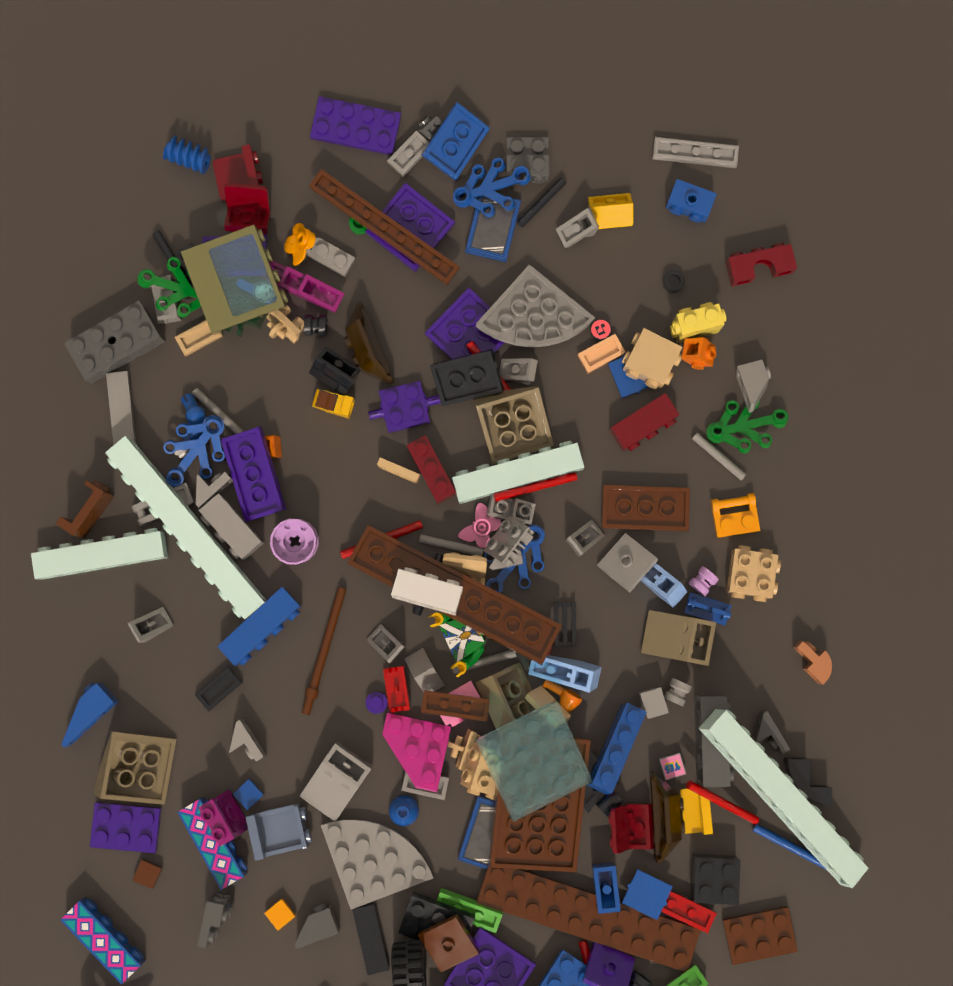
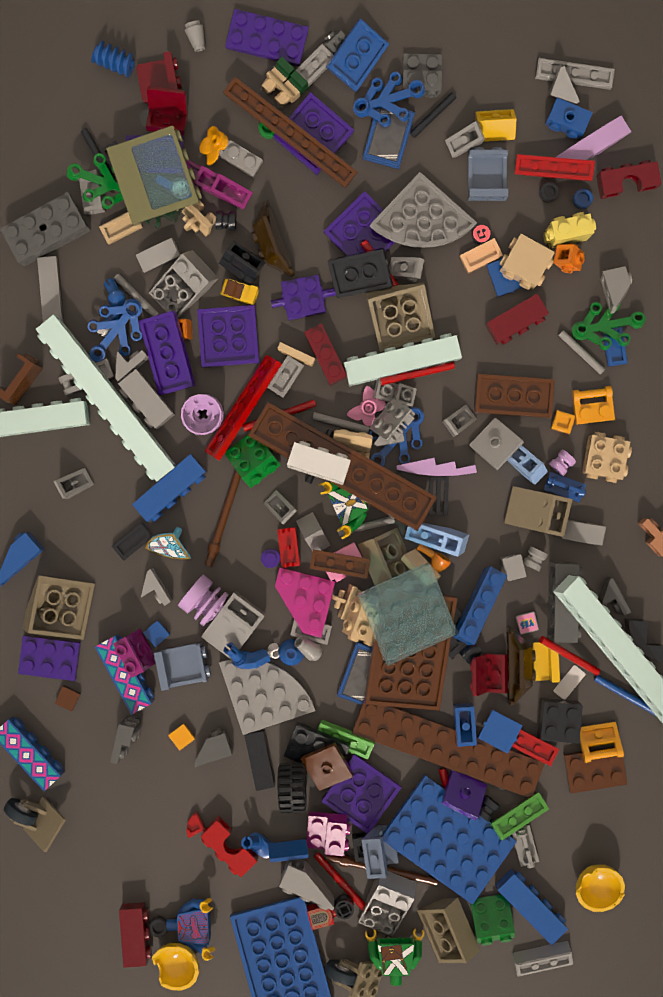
camera: 10 degrees left, 5 degrees up
(241, 365) = (158, 255): none -> light grey slope
(259, 691) = (168, 545): none -> shield
(270, 396) = (183, 283): none -> light grey slope
(277, 126) = (195, 34): none -> light grey cone
(300, 753) = (203, 600): none -> lavender wheel
(321, 453) = (228, 336): none -> dark purple plate
(340, 532) = (243, 407): none -> red plate
(352, 591) = (252, 460): none -> green bracket
(357, 821) = (250, 660): none -> blue arm
(378, 172) = (286, 81): none -> tan hips
(387, 495) = (285, 376): none -> light grey plate
(423, 805) = (308, 648): none -> light grey cone
(552, 592) = (429, 468): none -> lavender slope
(604, 264) = (487, 174): none -> sand blue panel
(678, 254) = (555, 167): none -> red plate
(682, 167) = (562, 86): none -> light grey slope
(702, 535) = (563, 422): none -> light orange tile
(711, 287) = (582, 198): none -> blue tile
(718, 229) = (598, 140): none -> lavender slope
(724, 834) = (569, 682): none -> white sticker
(732, 660) = (585, 532): none -> light grey slope
(757, 457) = (616, 353): none -> blue tile
(762, 895) = (600, 735): none -> light orange plate

